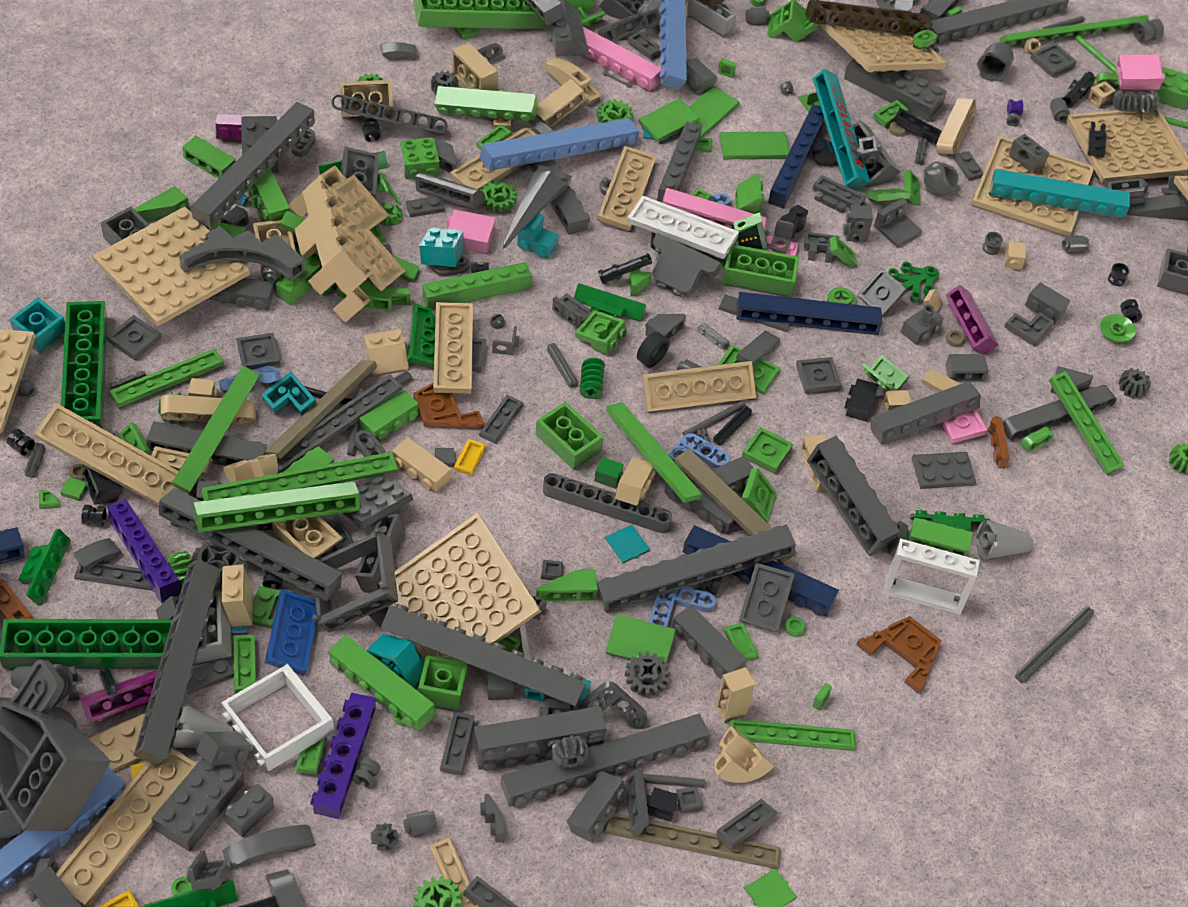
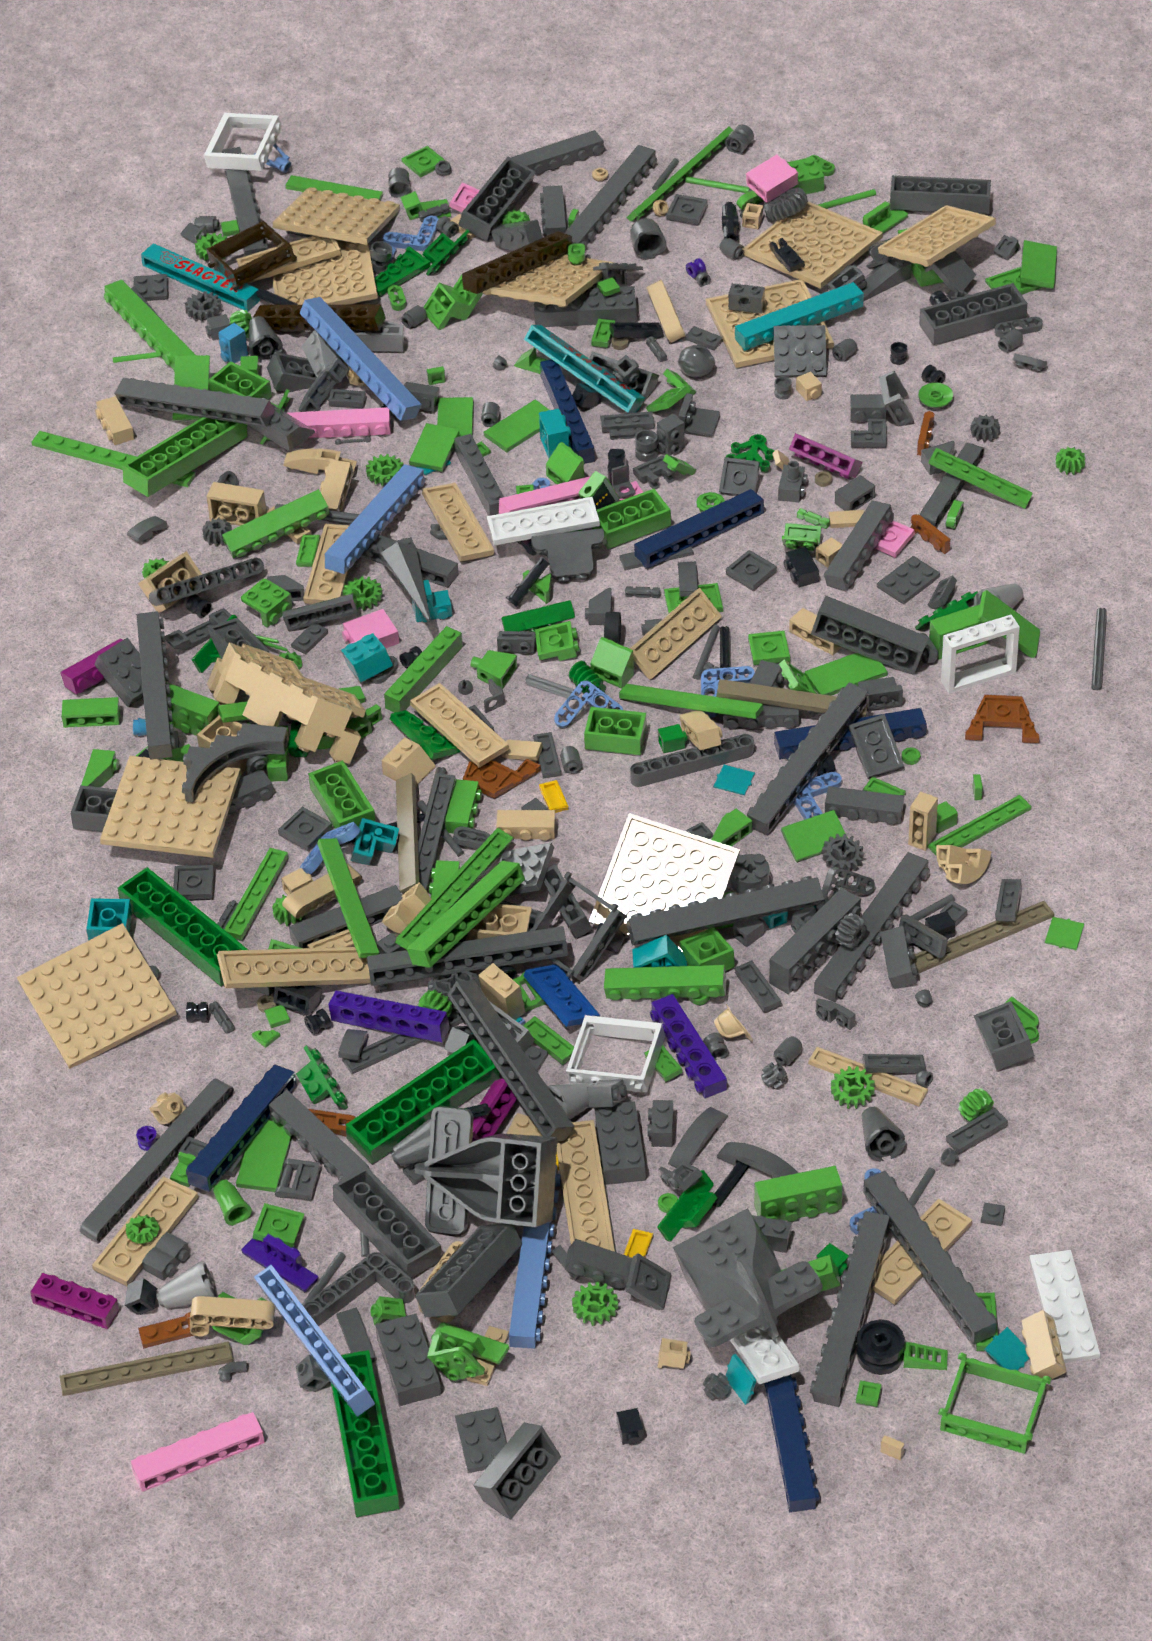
camera: 30 degrees left, 5 degrees down
(306, 345) = (340, 795): none -> bright green brick
(327, 146) = (197, 634): none -> dark grey slope
(396, 762) = (730, 1026): none -> tan piece
(484, 401) = (523, 750): none -> tan tile
(512, 435) = (570, 759): none -> dark grey brick
(533, 321) = (495, 666): none -> bright green torso
(550, 637) = (750, 872): none -> dark grey brick
(575, 393) = (589, 698): none -> medium blue beam
(584, 861) = (924, 998): none -> dark grey hinge
(624, 377) = (613, 662): none -> bright green slope
(738, 121) = (490, 414): none -> dark grey brick
(765, 702) = (945, 817): none -> bright green brick
(769, 163) = (553, 430): none -> teal brick
(809, 515) = (833, 676): none -> bright green tile
(821, 552) = (882, 693): none -> dark grey bracket
(832, 219) = (646, 445): none -> dark grey wheel
(913, 365) = (813, 518): none -> bright green axle
(922, 78) = (608, 287): none -> bright green tile
(939, 74) = (617, 271): none -> dark grey bracket
(962, 499) = (942, 592): none -> dark grey plate
(992, 578) = (993, 608): none -> bright green tile
(1033, 221) = (799, 350): none -> dark grey plate
(1073, 306) = (892, 394): none -> dark grey panel
(1078, 353) = (926, 431): none -> dark orange plate

